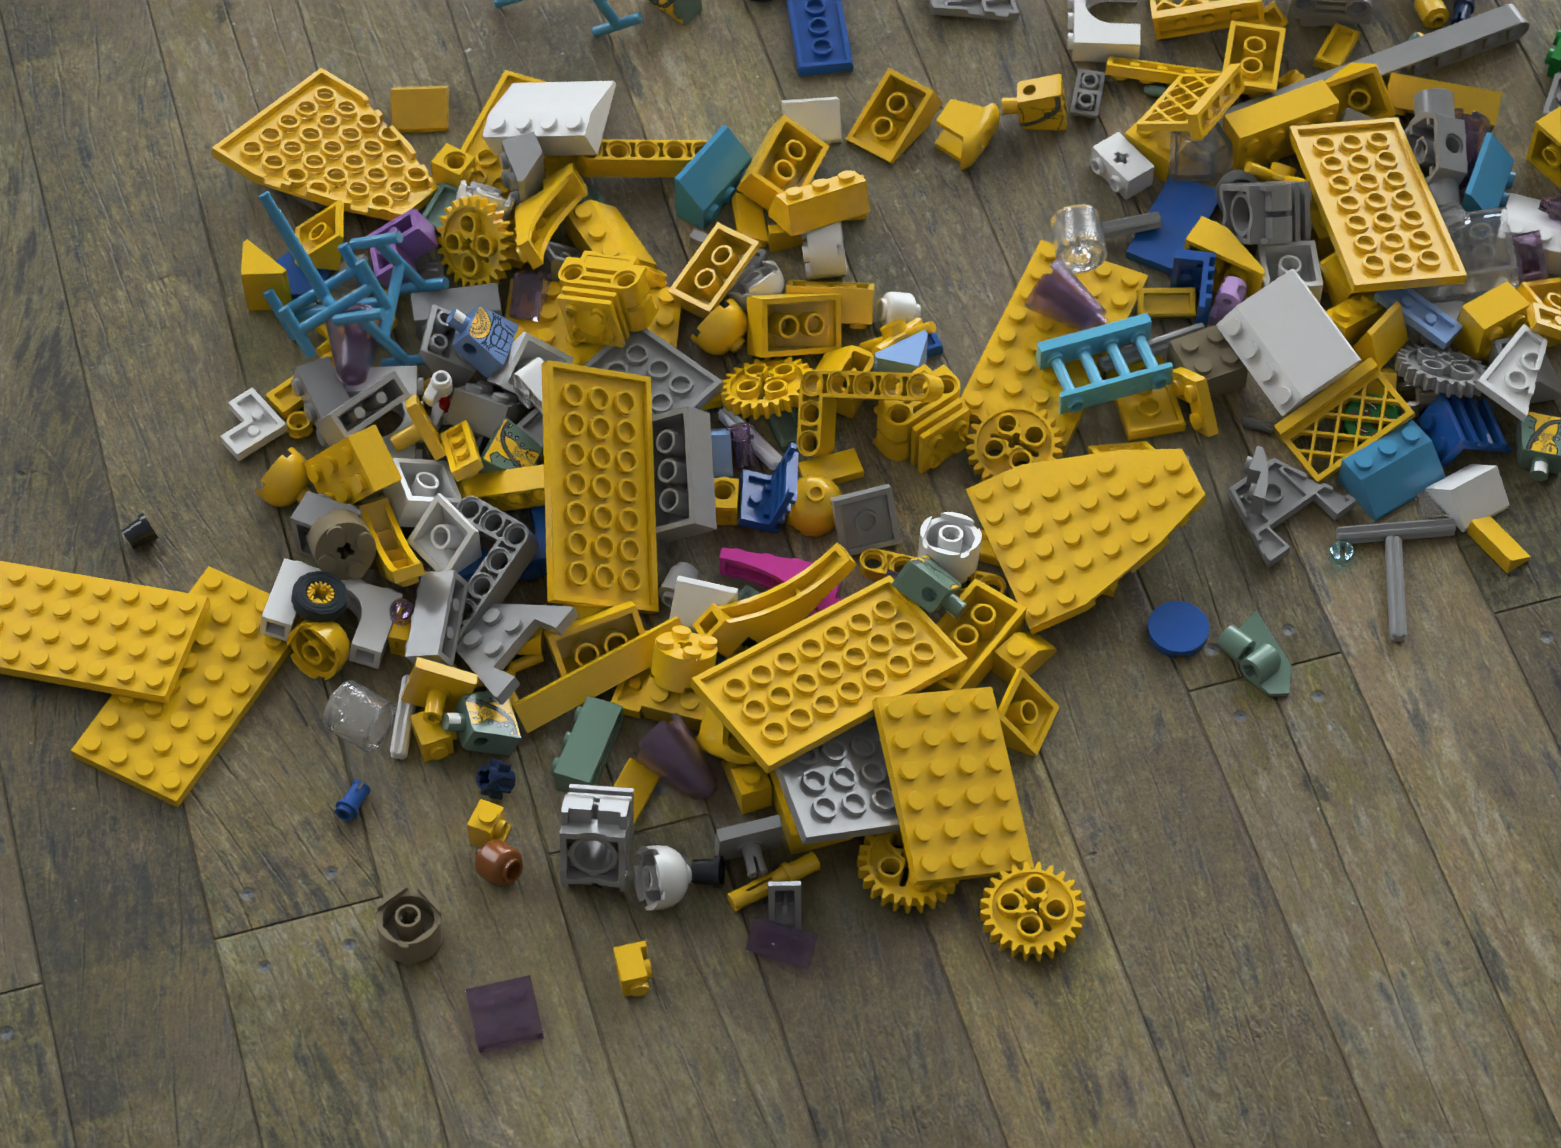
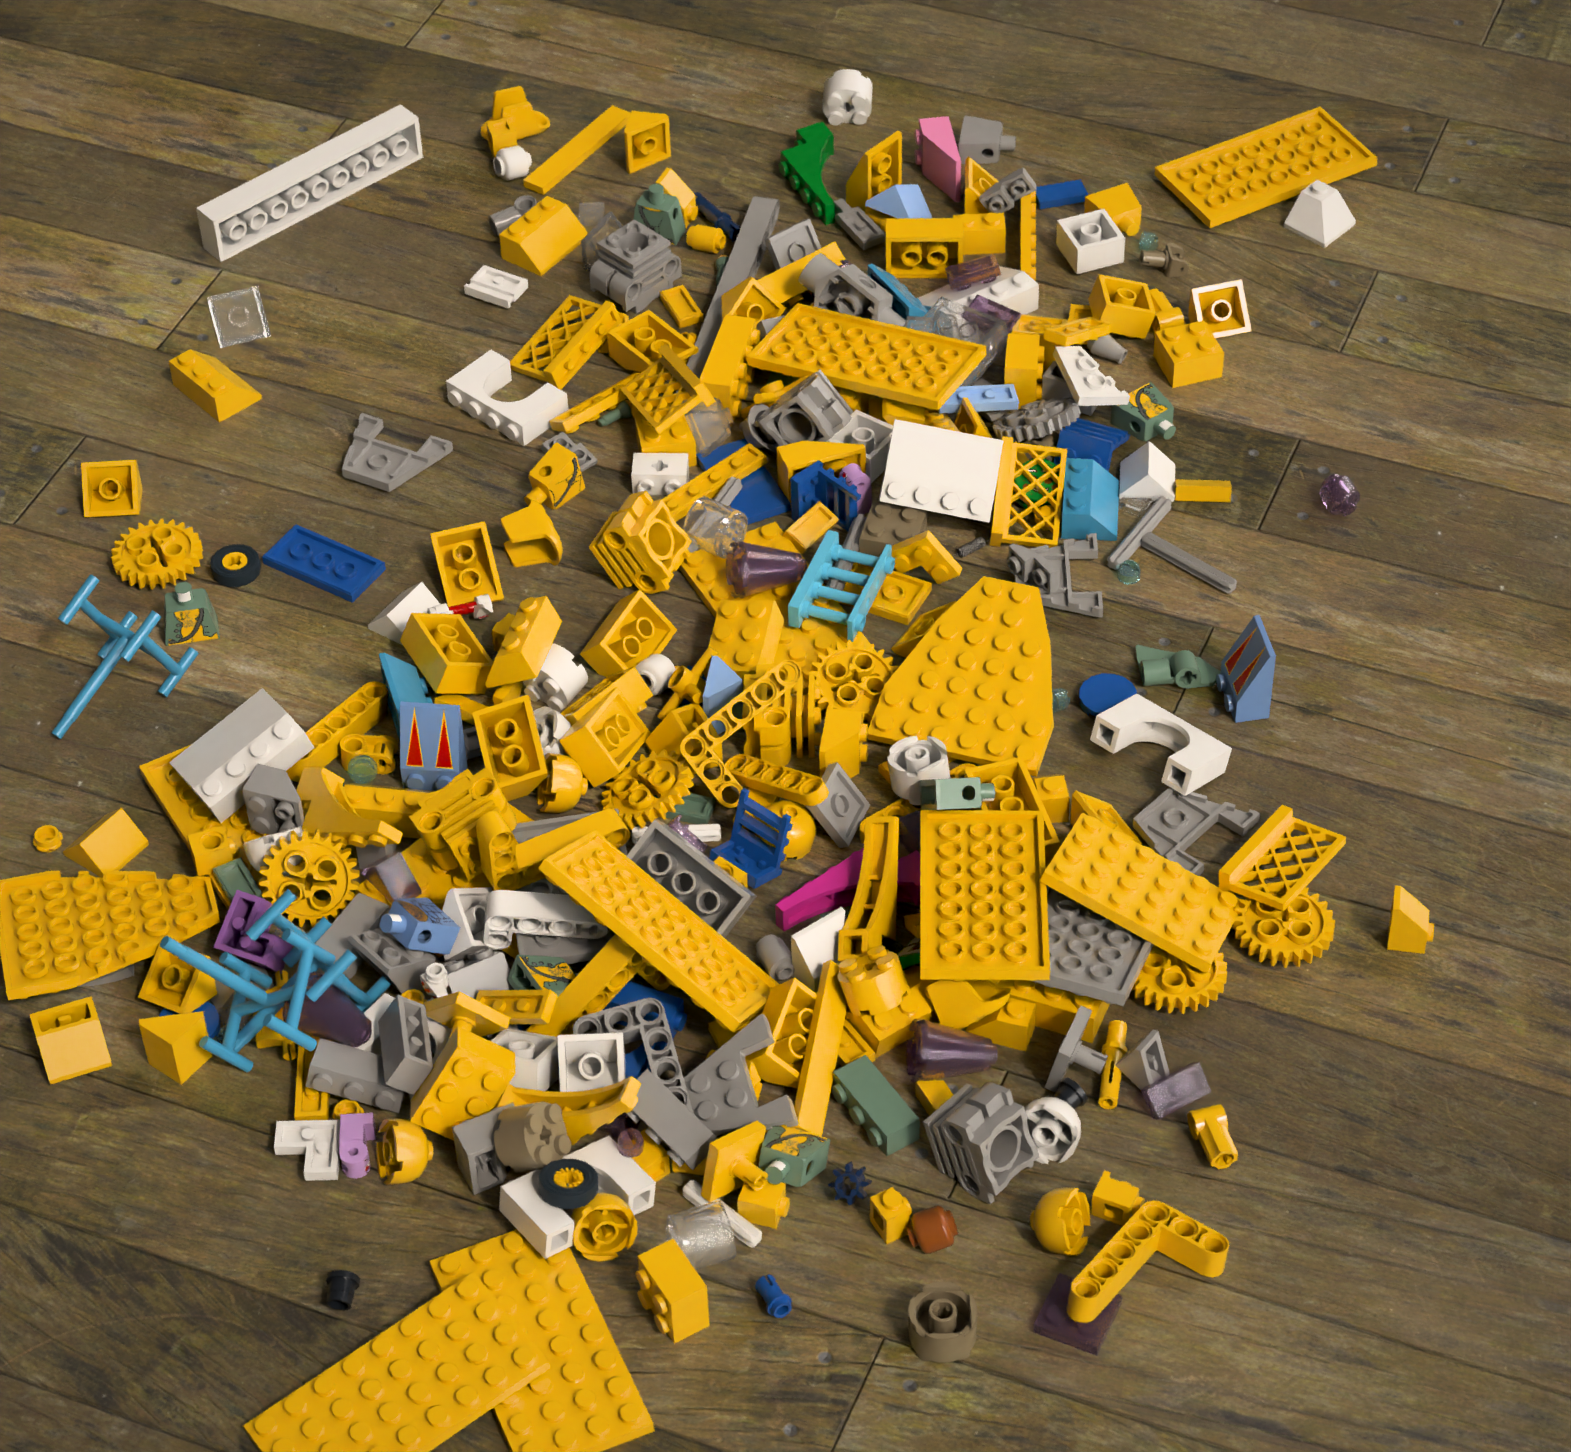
camera: 50 degrees left, 10 degrees down
(219, 218) = (70, 1040): none -> yellow slope
(273, 444) = (353, 1151): none -> lavender leg
(291, 731) = (672, 1291): none -> yellow brick
(393, 70) = (47, 838): none -> yellow plate
(575, 945) = (1061, 1221): none -> yellow cylinder
(579, 1016) = (1149, 1229): none -> yellow beam
(583, 347) = (517, 865): none -> yellow beam
(624, 200) = (362, 769): none -> clear light blue plate
(647, 192) = (369, 745): none -> yellow piece
(670, 225) = (430, 745): none -> medium blue slope
(764, 990) = (1211, 1129): none -> yellow piece
(847, 461) = (777, 780): none -> yellow beam
(861, 155) = (480, 607): none -> white piece
(922, 267) = (628, 635): none -> yellow slope
(925, 481) = (843, 741): none -> yellow slope
(977, 342) = (746, 634): none -> yellow brick
(1023, 221) = (641, 544): none -> yellow piece
(1080, 765) = (1178, 820): none -> light grey wing
(1094, 843) = (1261, 850): none -> yellow fence
(1110, 999) = (1408, 923): none -> yellow slope
(1123, 201) = (710, 482): none -> yellow tile
(1137, 595) = (1060, 699): none -> clear light blue hinge
(1166, 669) = (1197, 756): none -> white arch
(1282, 713) = (1248, 674): none -> medium blue slope
(1473, 67) = (792, 243): none -> light grey tile

